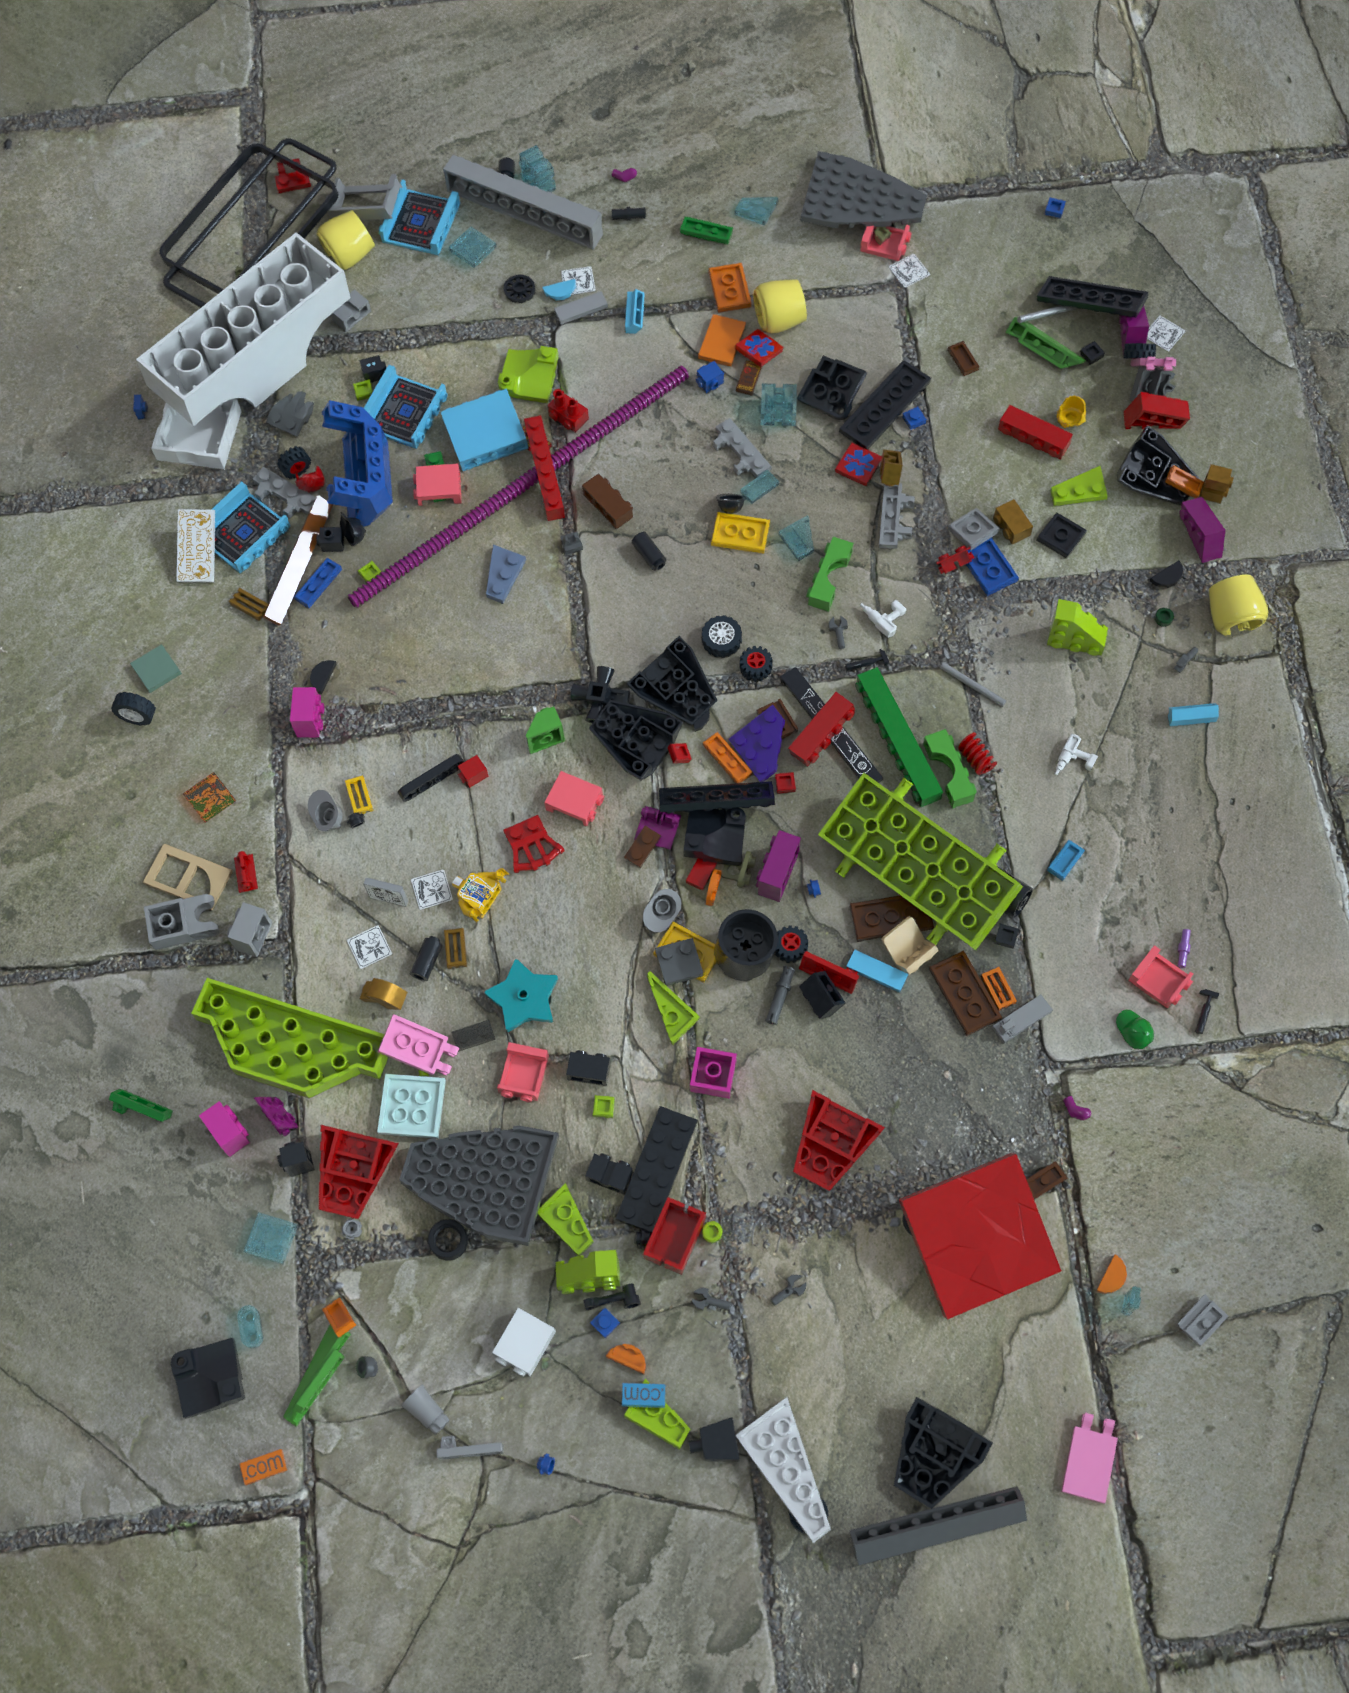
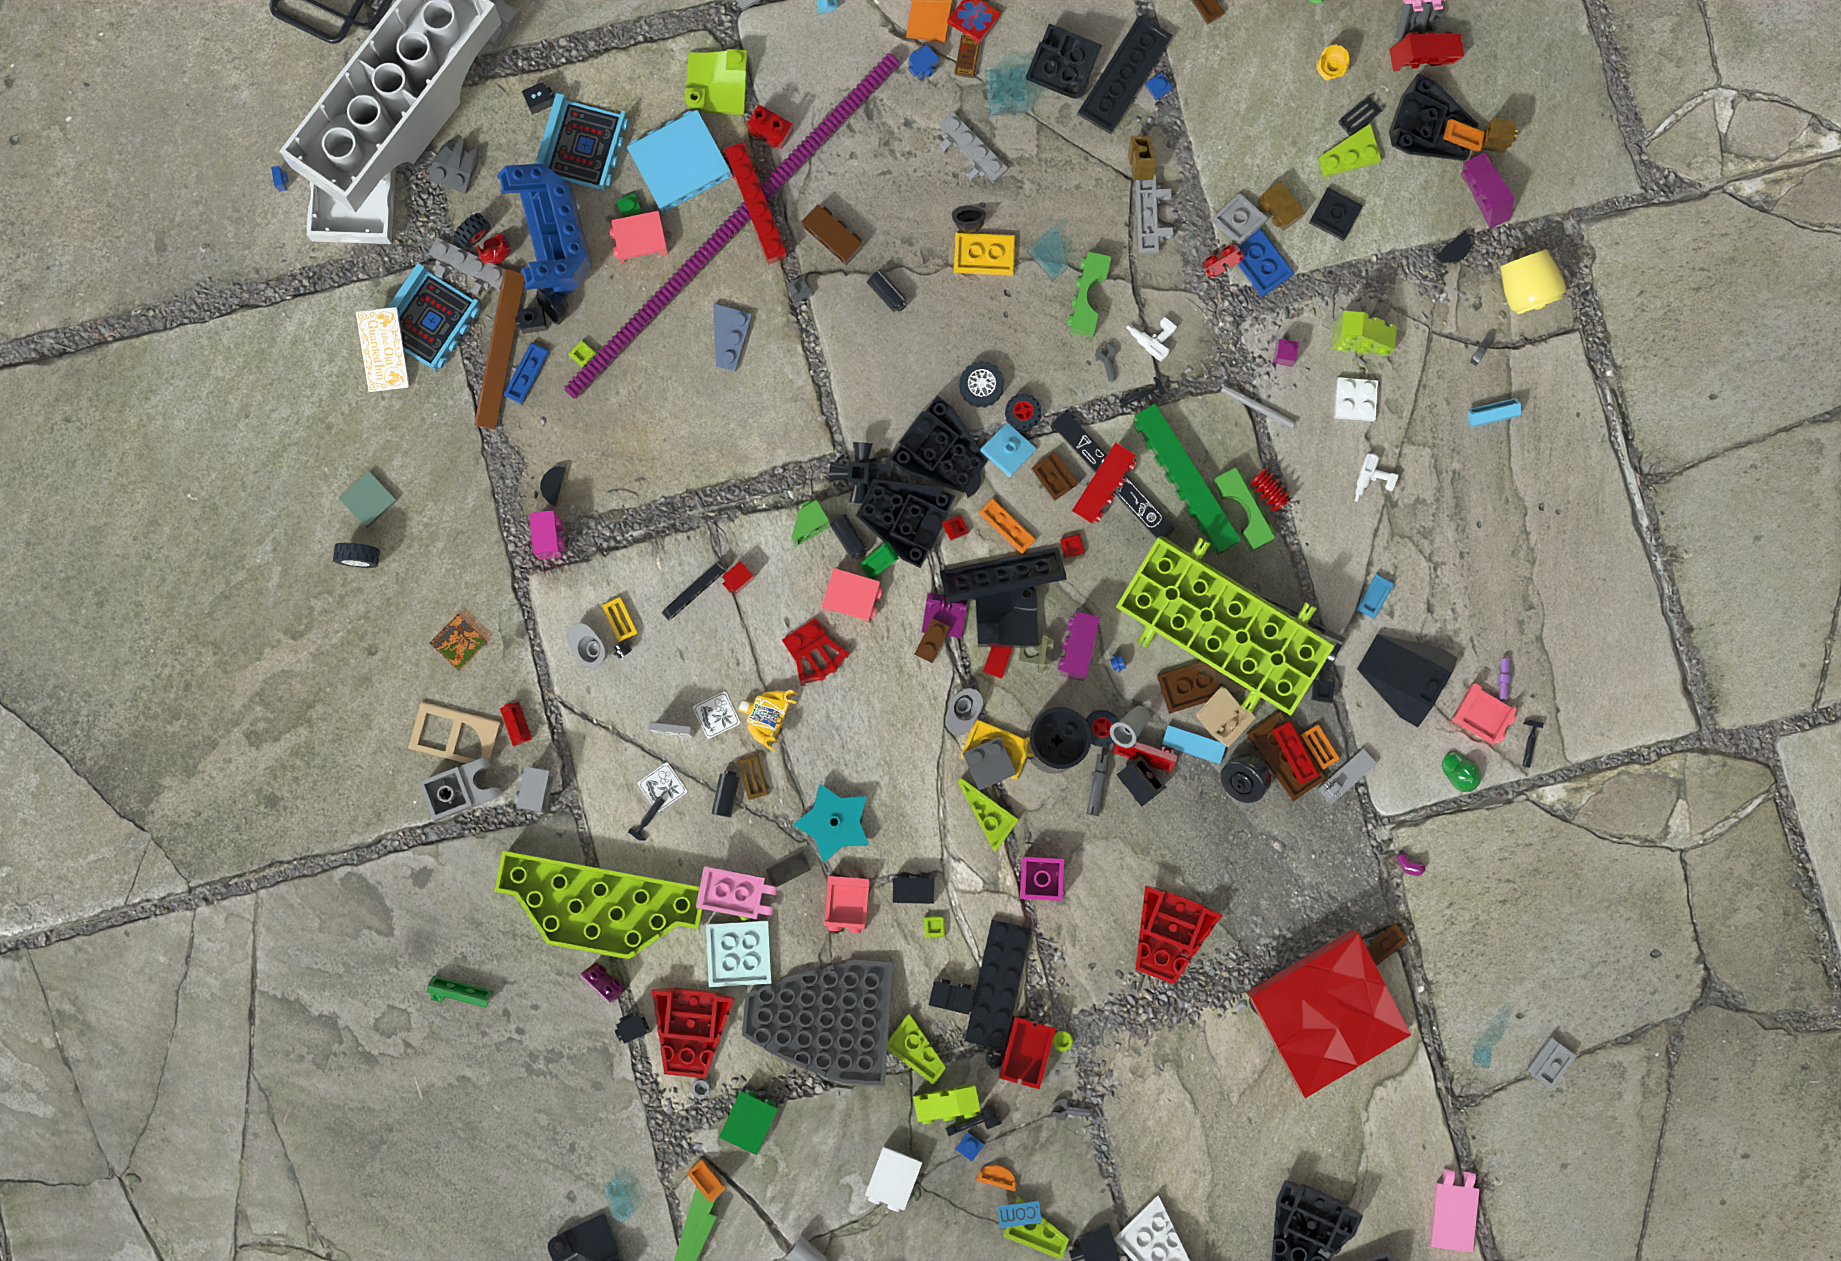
camera: 15 degrees left, 15 degrees up
(222, 1125) = (553, 1006): dark pink brick -> none
(241, 592) = (439, 402): pearl gold tile -> none
(270, 1238) = (621, 1110): clear light blue tile -> none
(349, 972) = (647, 819): none -> black piece
(363, 390) = (531, 124): lime tile -> none
(366, 1367) = (742, 1224): dark grey tile -> none
(384, 993) = (688, 840): pearl gold brick -> none
(392, 1266) = (749, 1121): none -> green brick
(447, 1223) = (794, 1101): black tyre -> none
(580, 748) = (849, 537): none -> black brick
(604, 770) = (879, 561): none -> green tile
(713, 887) = (1013, 672): orange tile -> none
(738, 692) = (1008, 449): none -> medium azure plate
(759, 487) = (997, 194): clear light blue tile -> none
(761, 743) = (1041, 506): dark purple plate -> none
(789, 1290) = (1146, 1088): dark grey bar -> none
(814, 943) = (1129, 727): none -> light grey plant
(858, 464) = (1104, 153): red tile -> none
(923, 1005) = (1246, 778): none -> black wheel
(974, 989) = (1295, 752): none -> red tile
(1003, 640) = (1286, 352): none -> magenta brick
(1035, 432) = (1295, 90): red brick -> none
(1064, 688) = (1356, 399): none -> white plate
(1088, 932) = (1407, 675): none -> black wedge
(1101, 452) = (1372, 106): none -> black tile
(1114, 1276) = (1462, 1031): orange tile -> none
(1164, 617) = (1454, 300): dark green tile -> none

